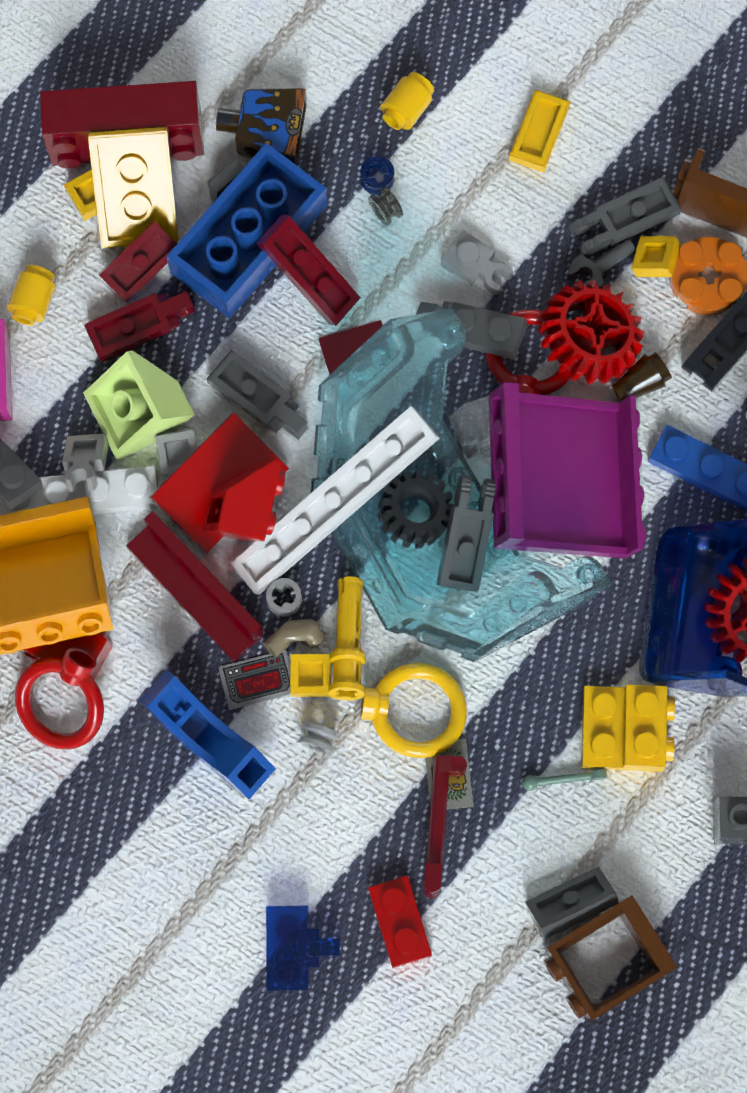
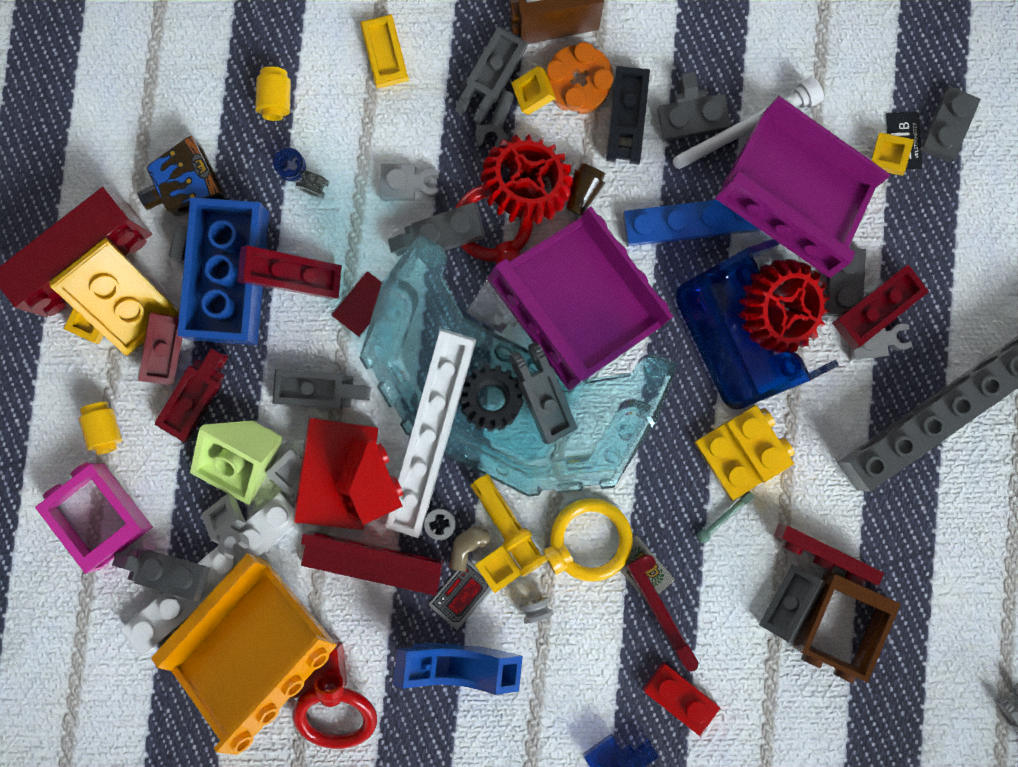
camera: 30 degrees left, 10 degrees up
(638, 879) = (827, 556): none -> dark red plate

